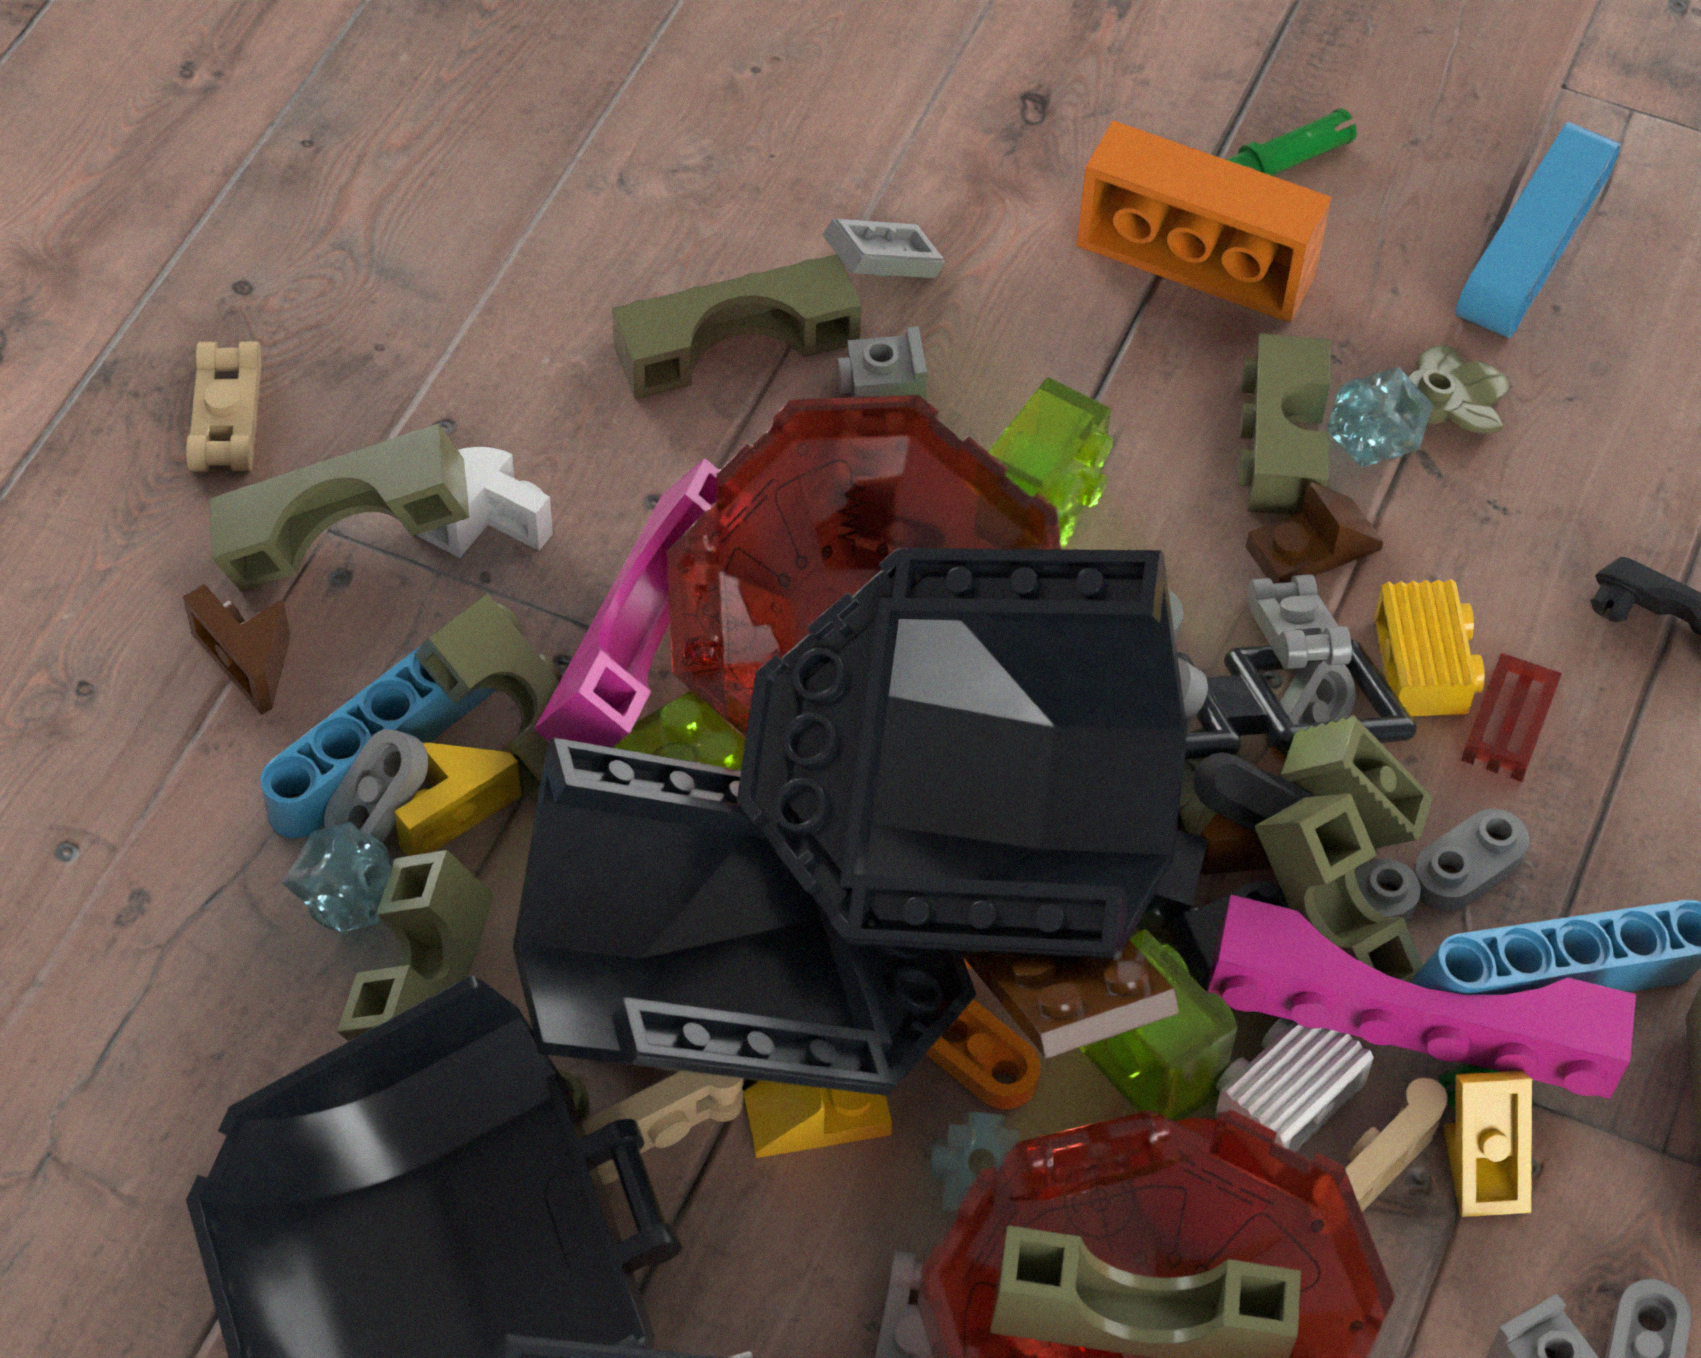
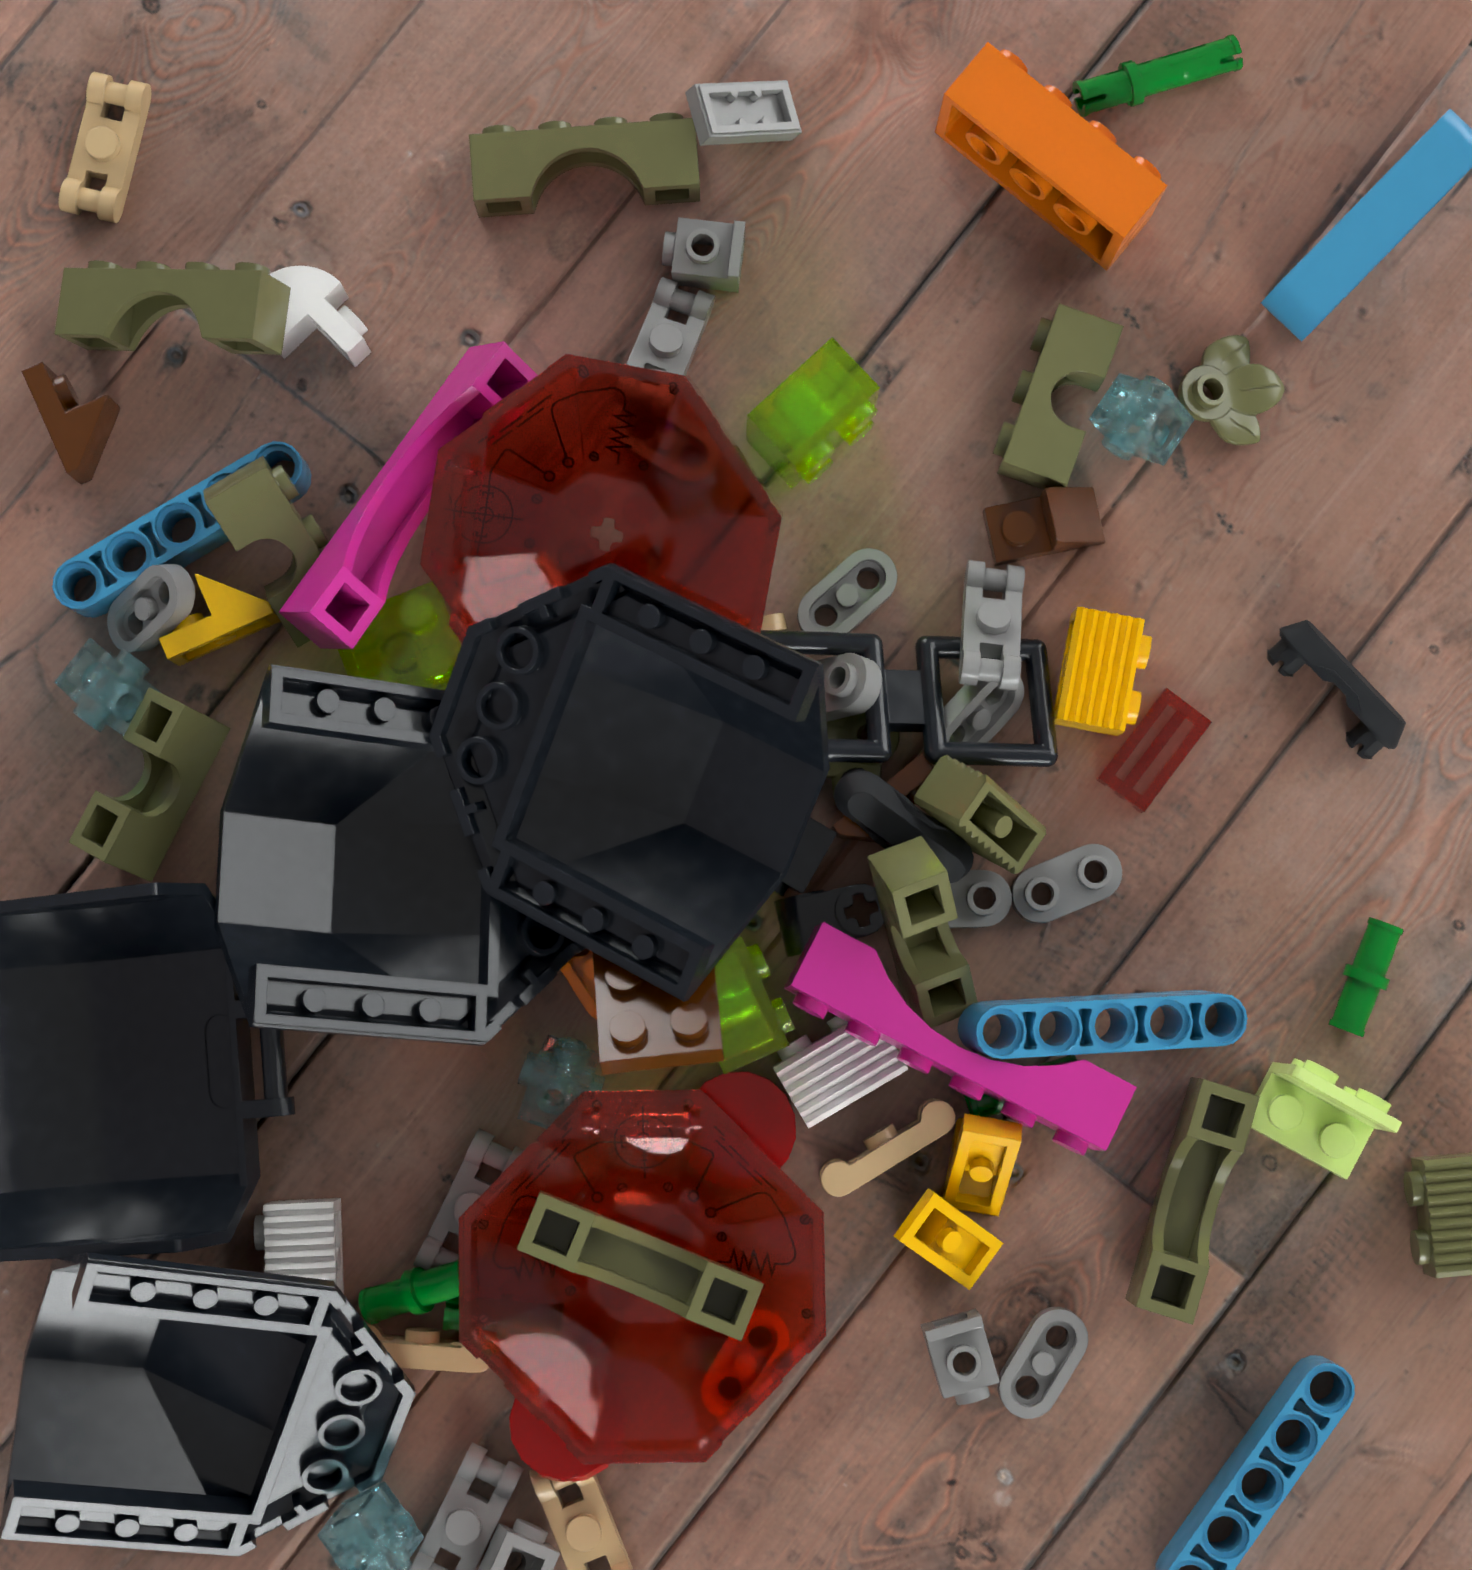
camera: 15 degrees right, 30 degrees up
(1483, 1227) = (948, 1239): none -> yellow slope

